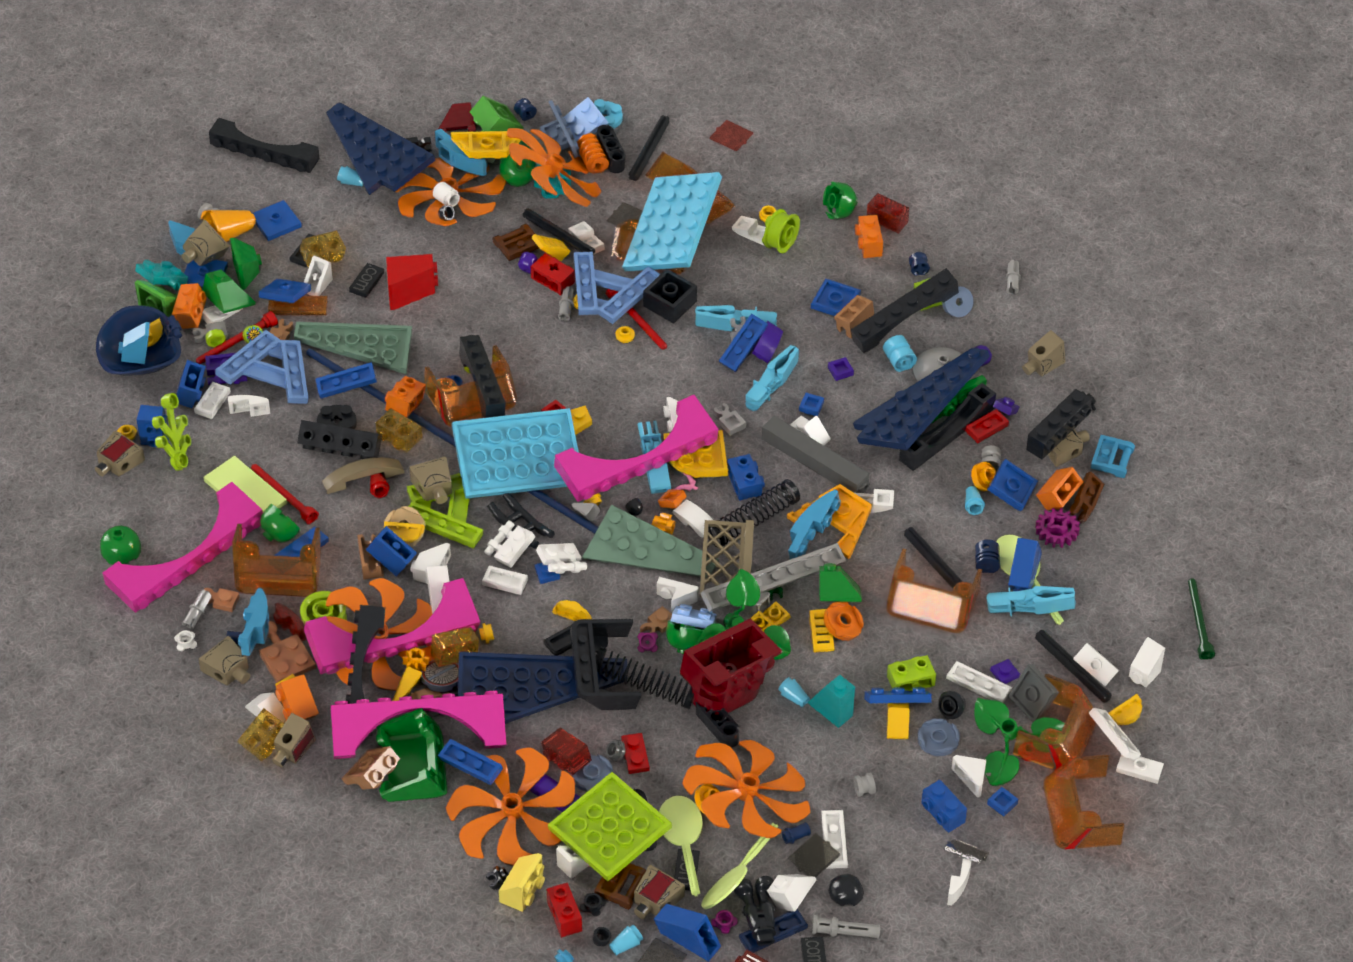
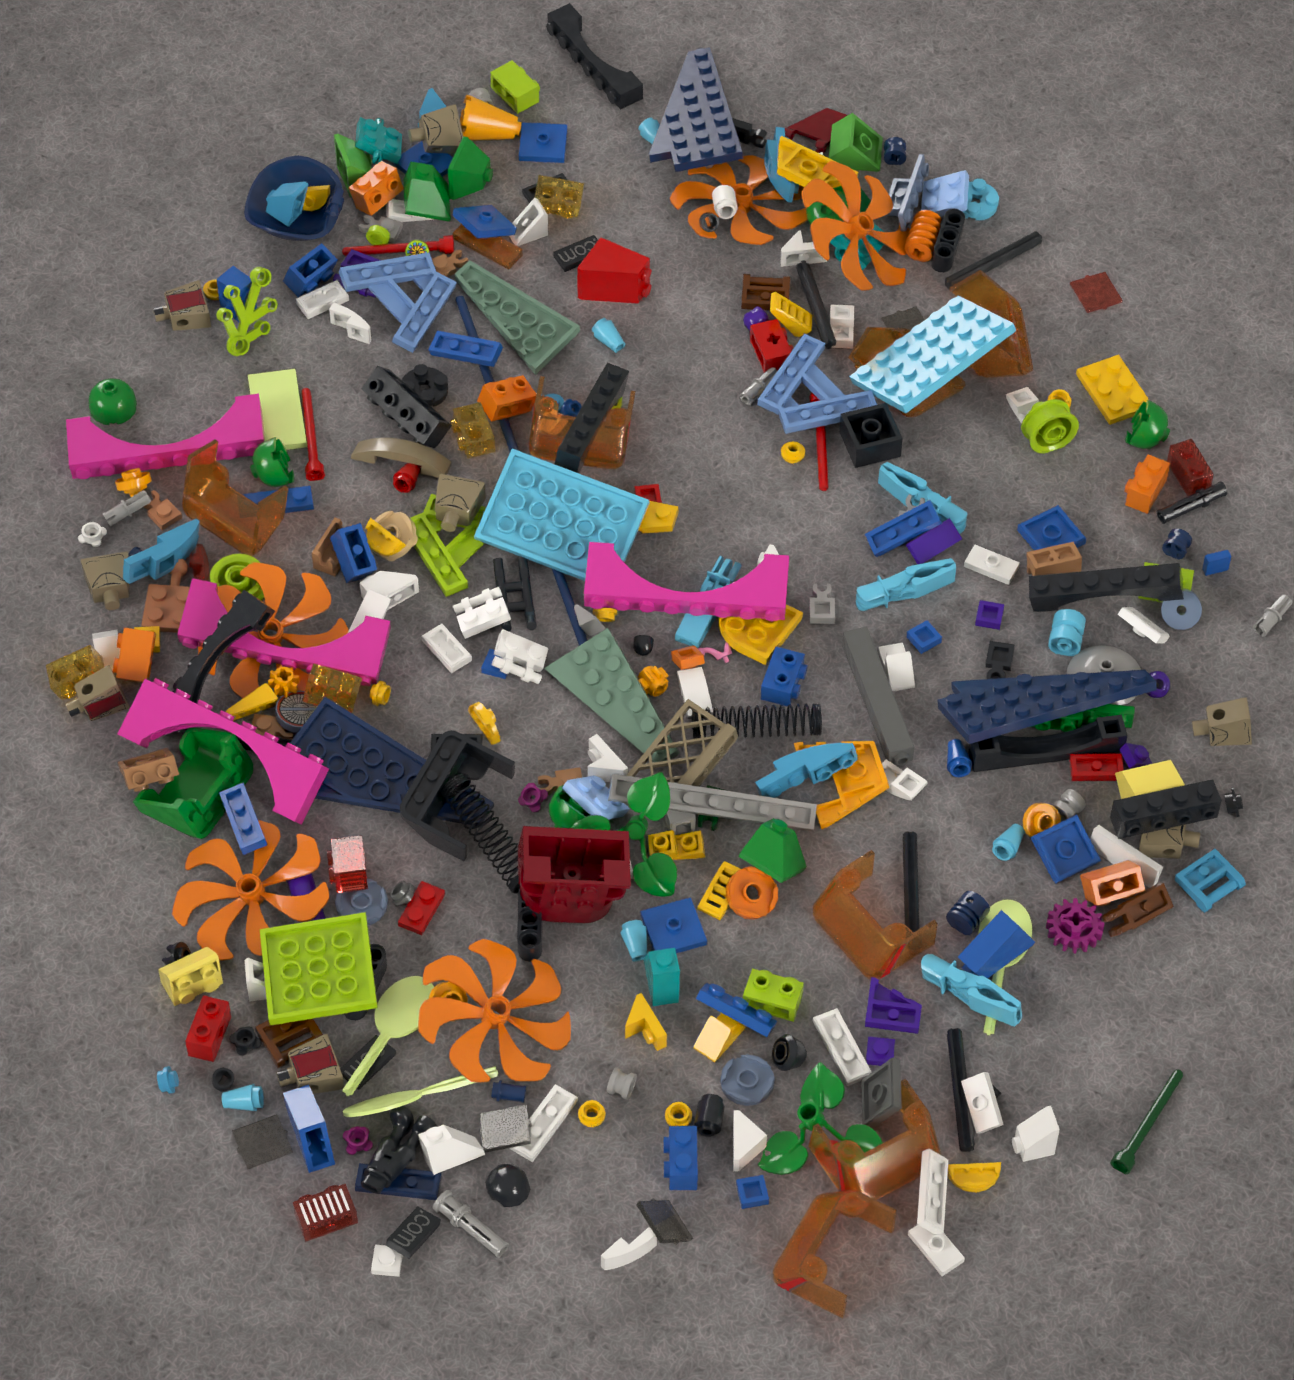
camera: 35 degrees right, 5 degrees up
(186, 589) = (133, 481): none -> light orange plate
(225, 190) = (515, 86): none -> lime brick
(435, 322) = (607, 334): none -> medium azure cone
(518, 204) = (795, 251): none -> white slope
(795, 190) = (1112, 388): none -> yellow plate
(810, 671) = (674, 926): none -> blue plate
(813, 337) = (991, 564): none -> white plate
(845, 736) = (644, 1020): none -> yellow slope
(860, 809) = (591, 1106): none -> yellow plate
(870, 392) = (999, 658): none -> black plate
(898, 467) = (958, 760): none -> blue cone
(914, 220) = (1201, 498): none -> black pin
(915, 778) = (681, 1108): none -> yellow plate
(935, 769) = (709, 1115): none -> black brick
(941, 325) = (1143, 625): none -> white plate
(953, 261) = (1216, 562): none -> blue tile
(990, 642) = (891, 1010): none -> dark purple wing
(1029, 415) = (1148, 779): none -> light yellow slope
(1045, 468) = (1117, 851): none -> white tile

